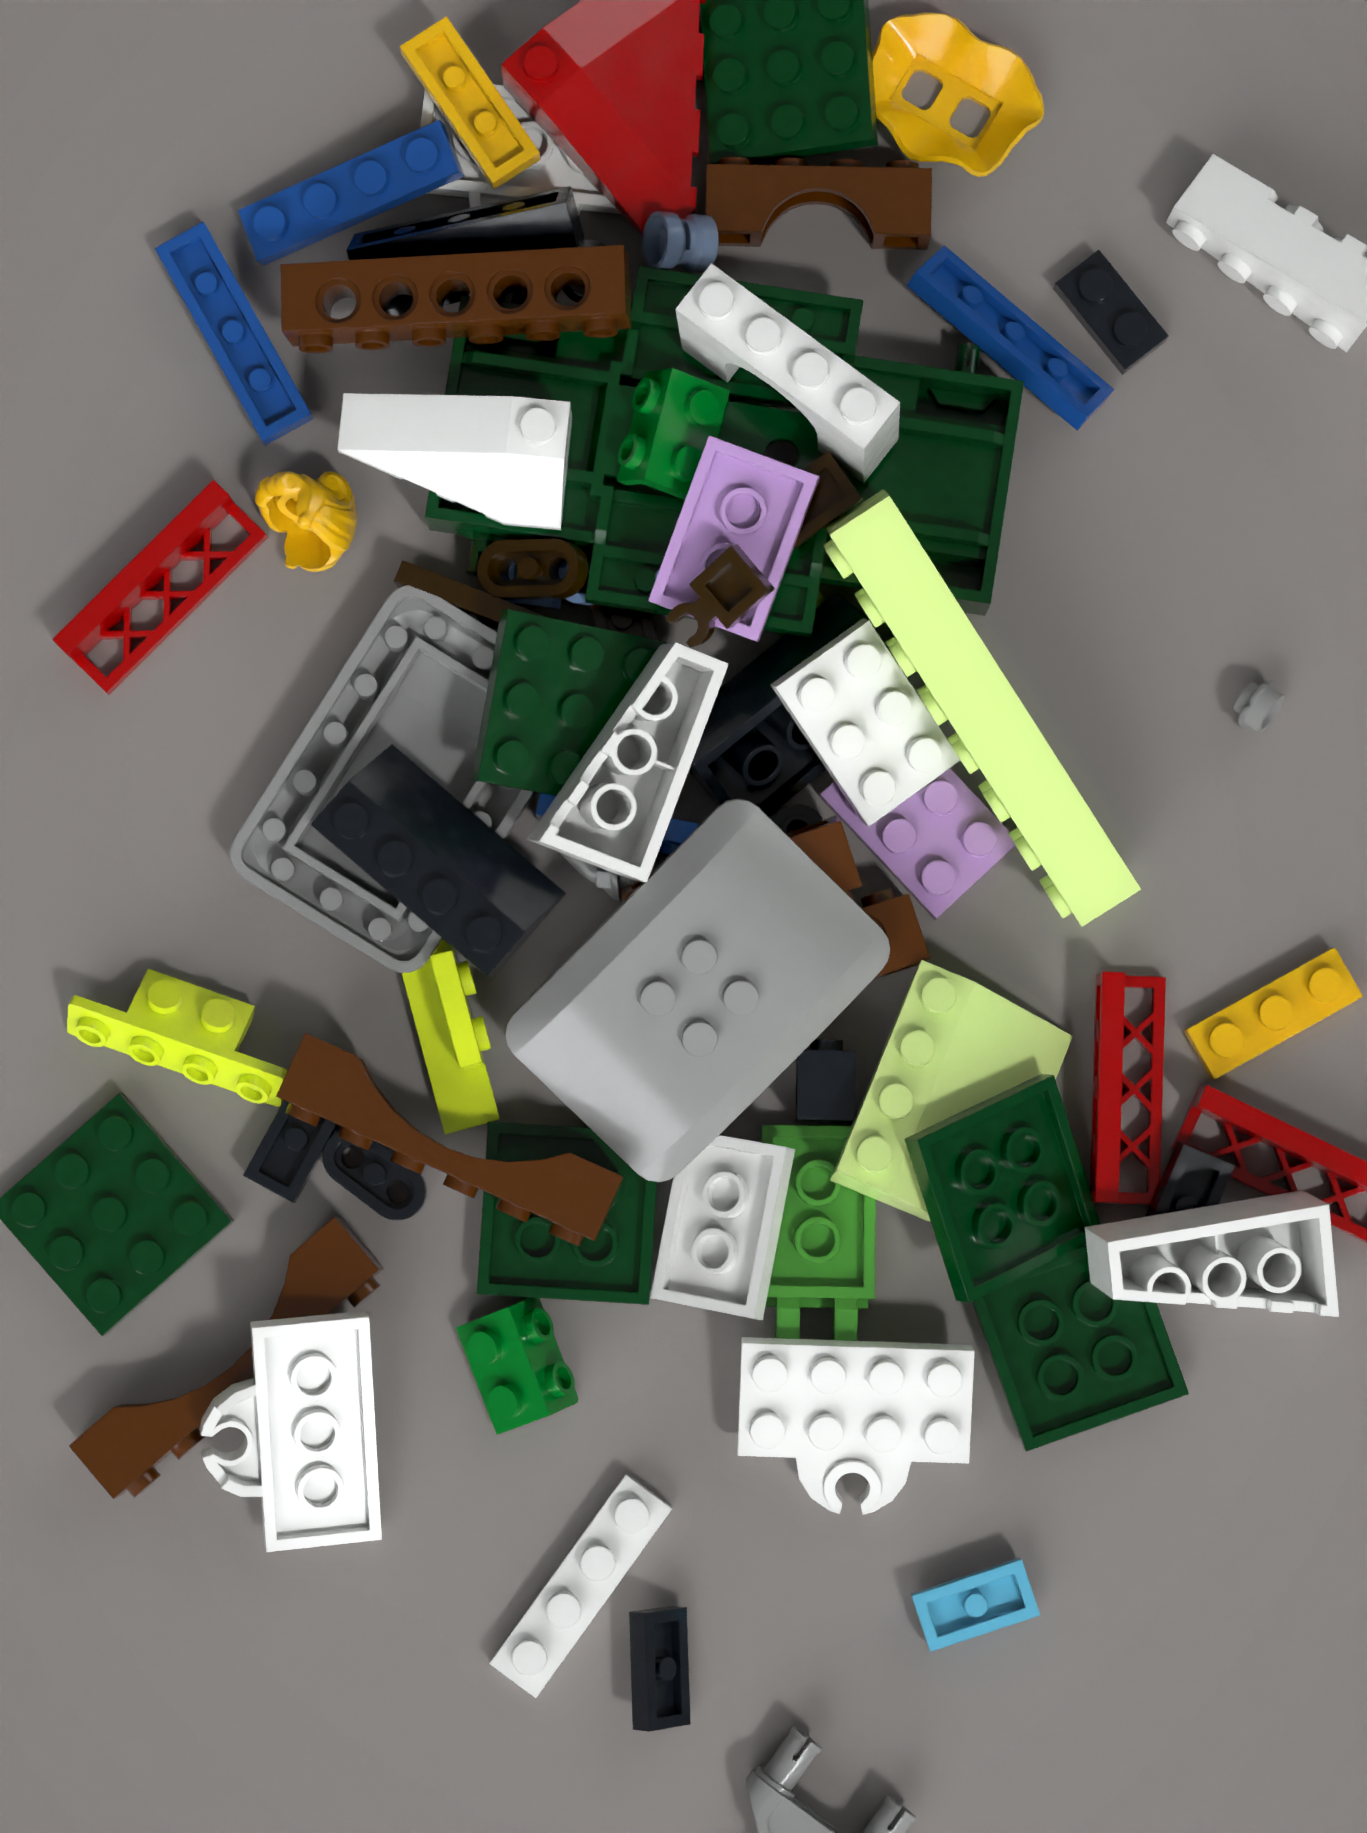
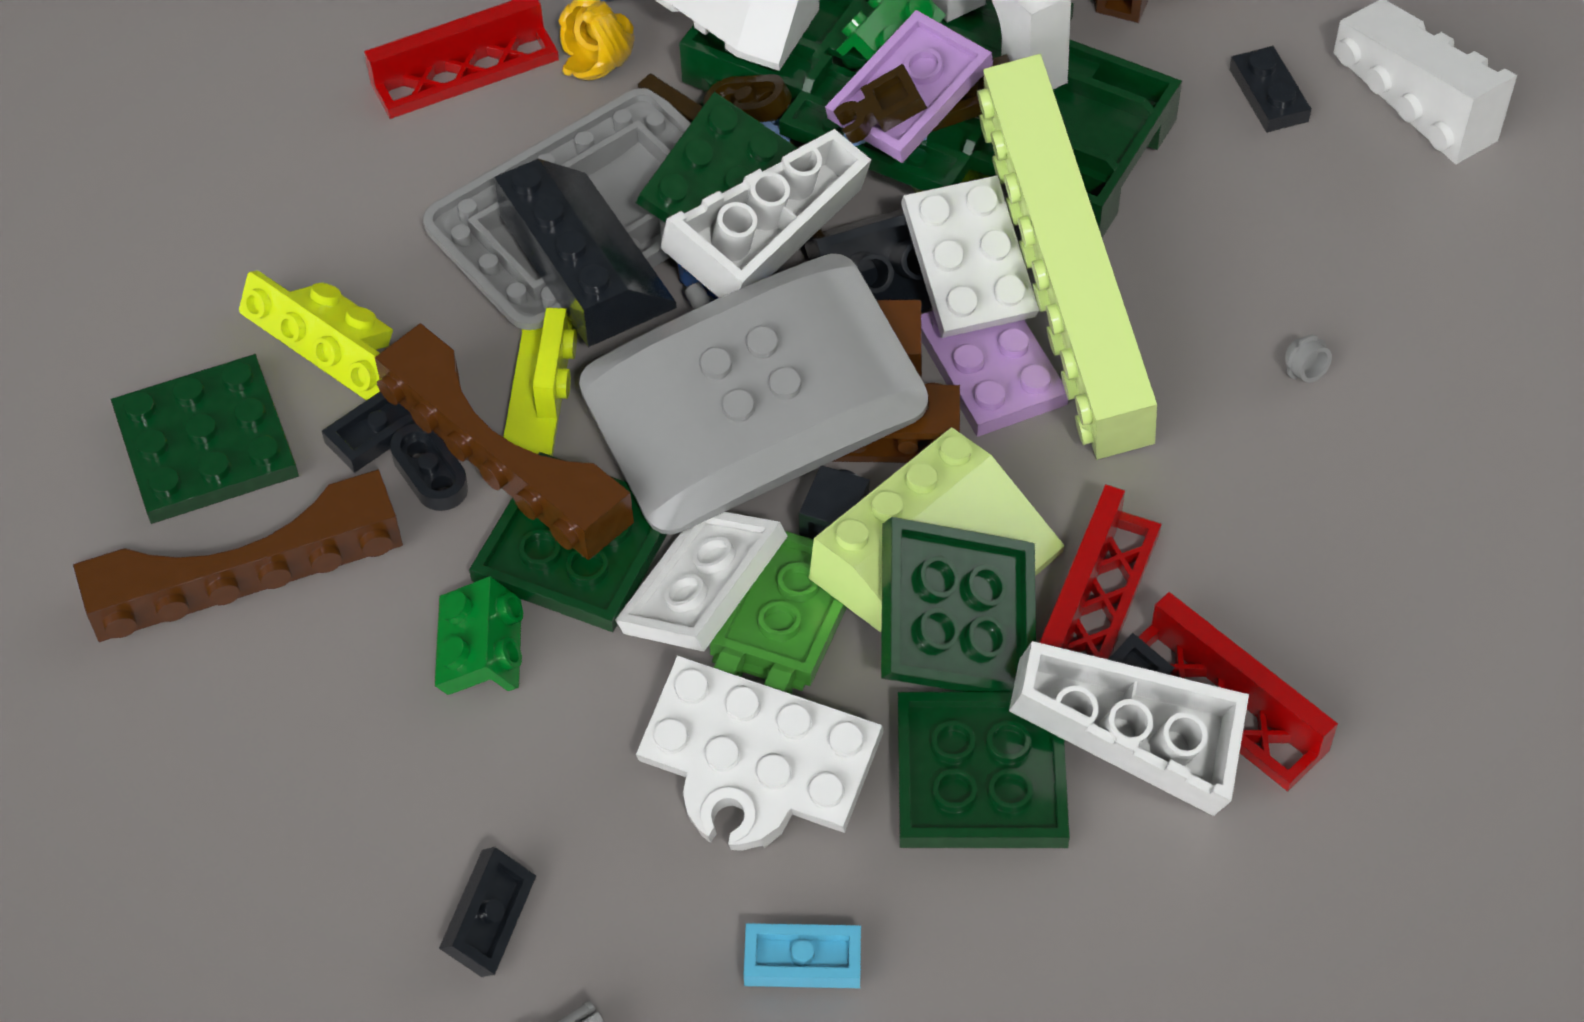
camera: 20 degrees right, 30 degrees down
(305, 1432) = (271, 615): white plate -> none
(580, 1585) = (449, 831): white plate -> none
(1010, 337) = (1199, 94): blue plate -> none
(1273, 1013) = (1251, 579): yellow plate -> none

